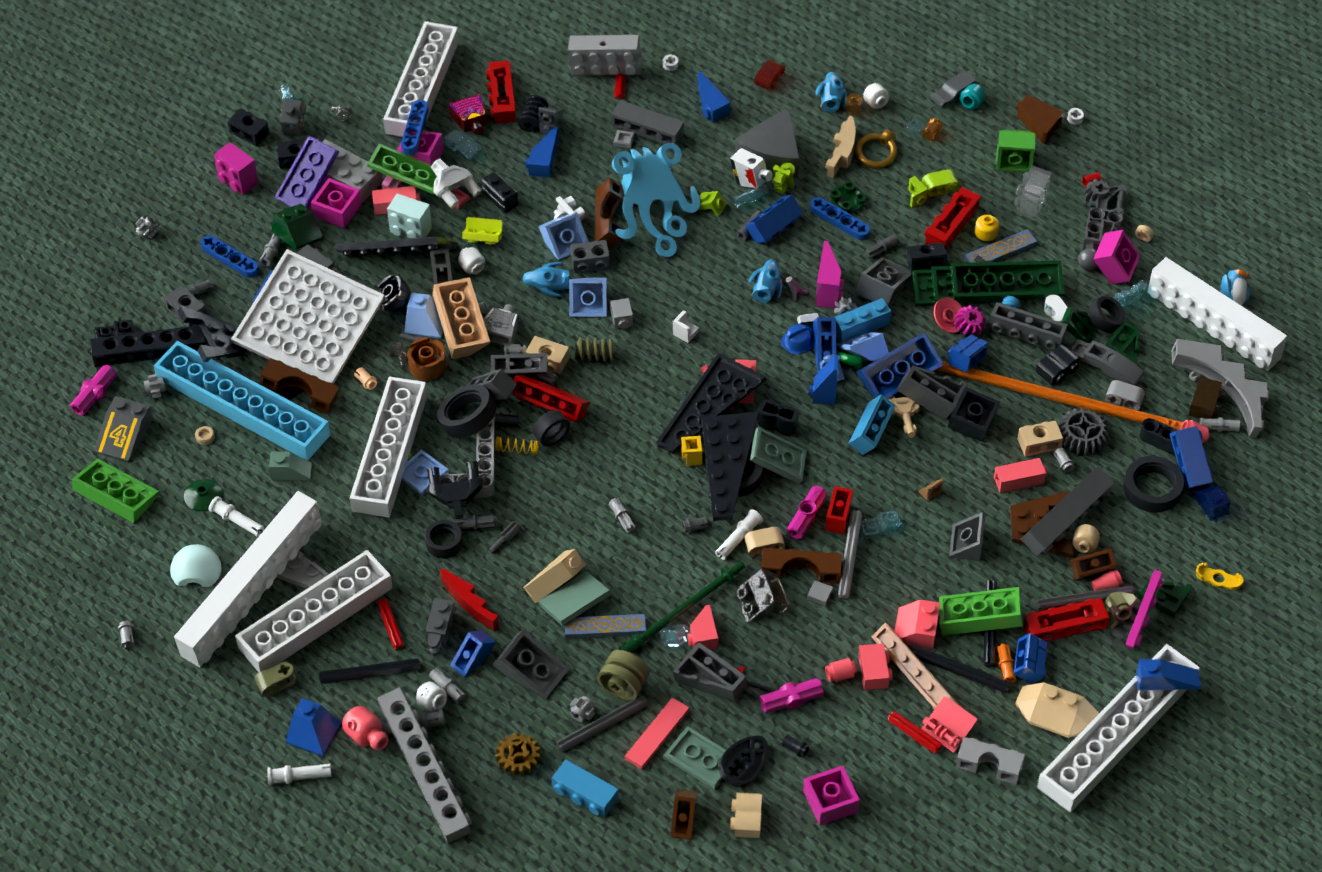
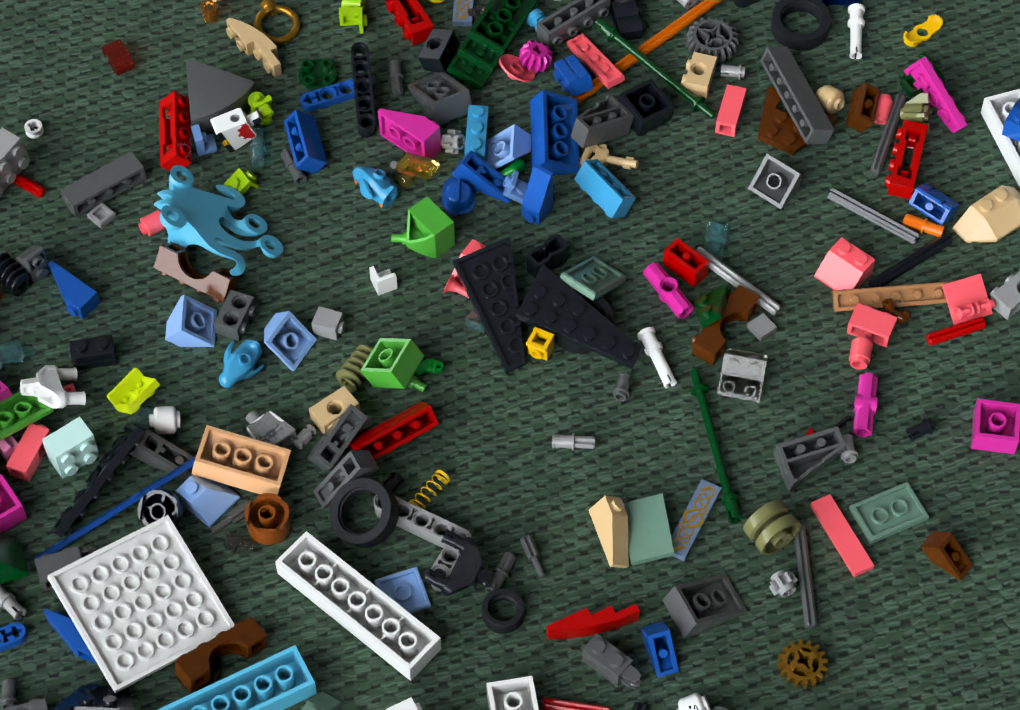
camera: 60 degrees left, 5 degrees up
(369, 382) = (248, 589): light nougat pin -> none
(382, 272) = (117, 509): none -> blue piece
(447, 684) = (683, 690): light grey pin -> none
(543, 431) = (434, 449): black tyre -> none
(565, 208) = (161, 308): white hips -> none
(584, 788) = (874, 625): dark azure brick -> none
(606, 369) = (394, 364): none -> bright green piece
(629, 394) = (431, 366): none -> green arm
(674, 635) = (740, 466): clear light blue slope -> none
(703, 630) = (752, 438): coral slope -> none
(712, 100) = (115, 118): blue slope -> none
(720, 140) = (175, 132): none -> red brick
(724, 158) = (204, 143): none -> medium blue bracket
(735, 754) = (916, 478): black piece -> none
(740, 702) = (849, 450): none -> light grey pin
(744, 329) = (428, 230): none -> bright green piece
(747, 815) = (977, 504): tan brick -> none
(763, 538) = (679, 340): tan beam -> none
(799, 295) = (415, 165): none -> clear yellow plate
(807, 318) = (442, 176): white tile -> none
(808, 544) = (711, 306): none -> dark green wing
(832, 93) = (181, 19): dark azure animal -> none
(850, 221) = (365, 98): none -> black beam
(899, 685) = (889, 307): none -> reddish brown arm
(932, 489) = (700, 182): medium nougat slope -> none
(980, 611) = (863, 210): bright green slope -> none
(997, 362) = (595, 61): none -> coral tile
(1030, 359) = (612, 34): none -> dark green bar
(1185, 524) = (856, 24): none -> white pin

